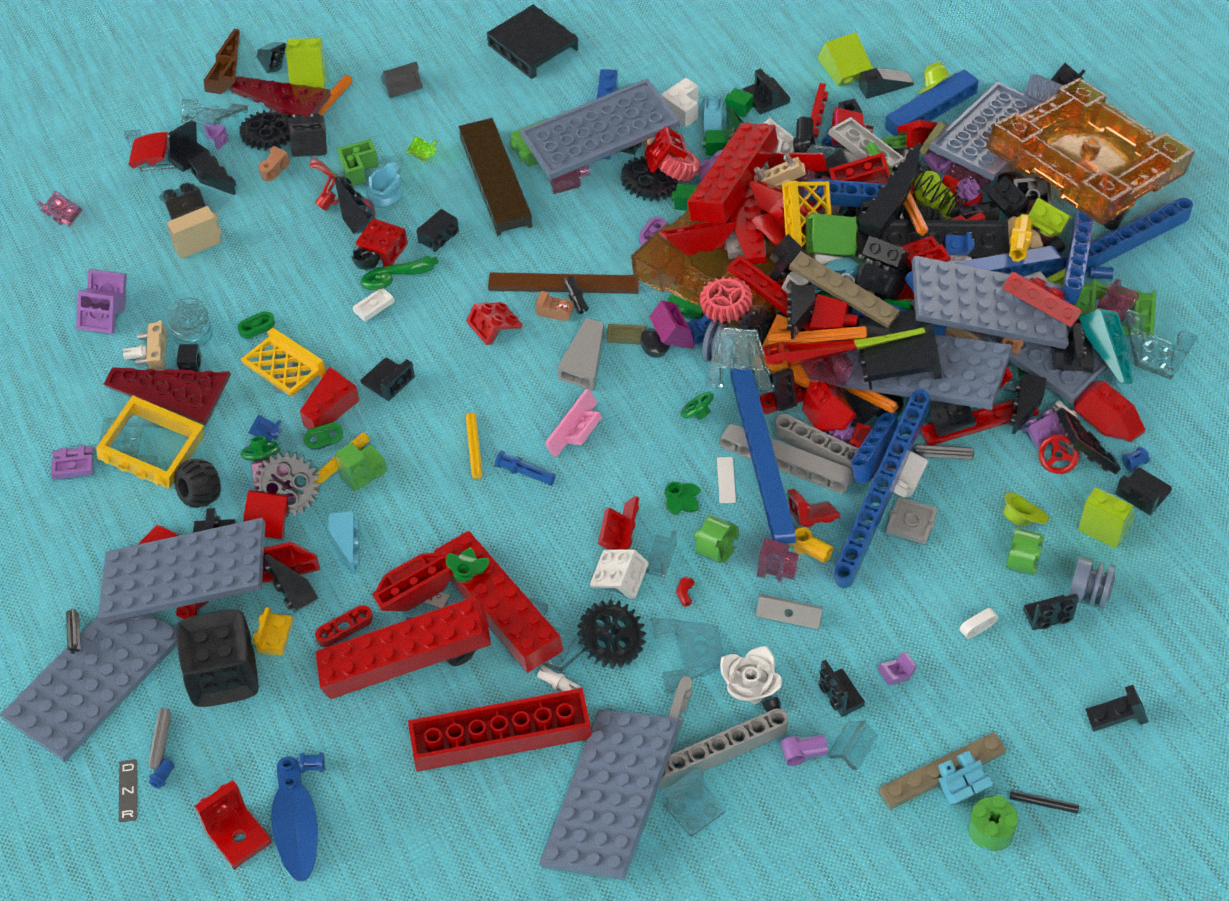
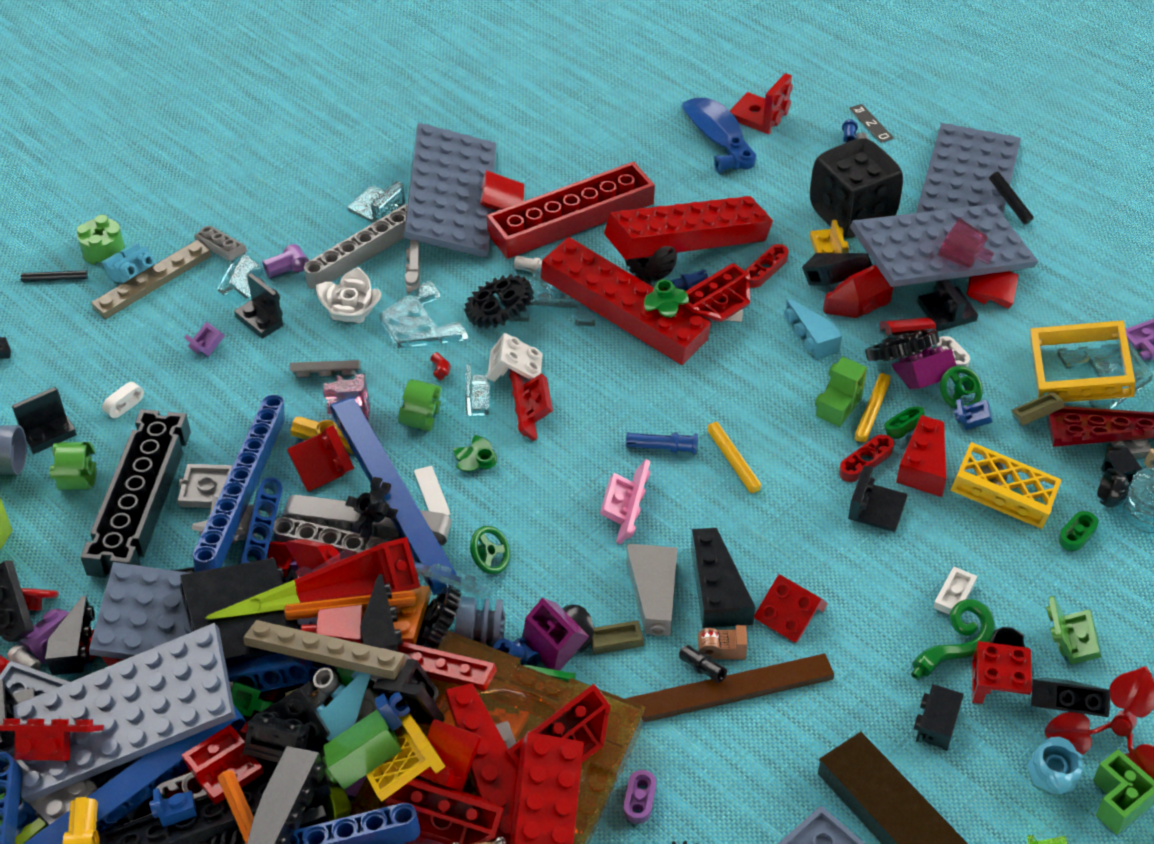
camera: 160 degrees right, 5 degrees down
(175, 541) = (965, 245): none -> clear pink torso
(197, 483) = (1003, 343): black wheel -> none
(209, 340) = (1113, 488): none -> black hair
(214, 417) = (1038, 408): none -> olive tile
(237, 492) = (961, 356): none -> white beam
(314, 255) = (1074, 633): none -> bright green bracket
(368, 426) = (870, 448): none -> red beam
(540, 340) = (718, 583): none -> black wedge
(560, 772) = (500, 191): none -> red slope
(726, 299) = (487, 628): coral gear -> none
(782, 432) = (371, 507): none -> black pin
(808, 242) = (389, 711): none -> blue tile
(873, 801) = (220, 243): none -> light grey tile
(969, 519) = (136, 492): none -> black brick
(1022, 512) = (72, 513): lime piece -> none

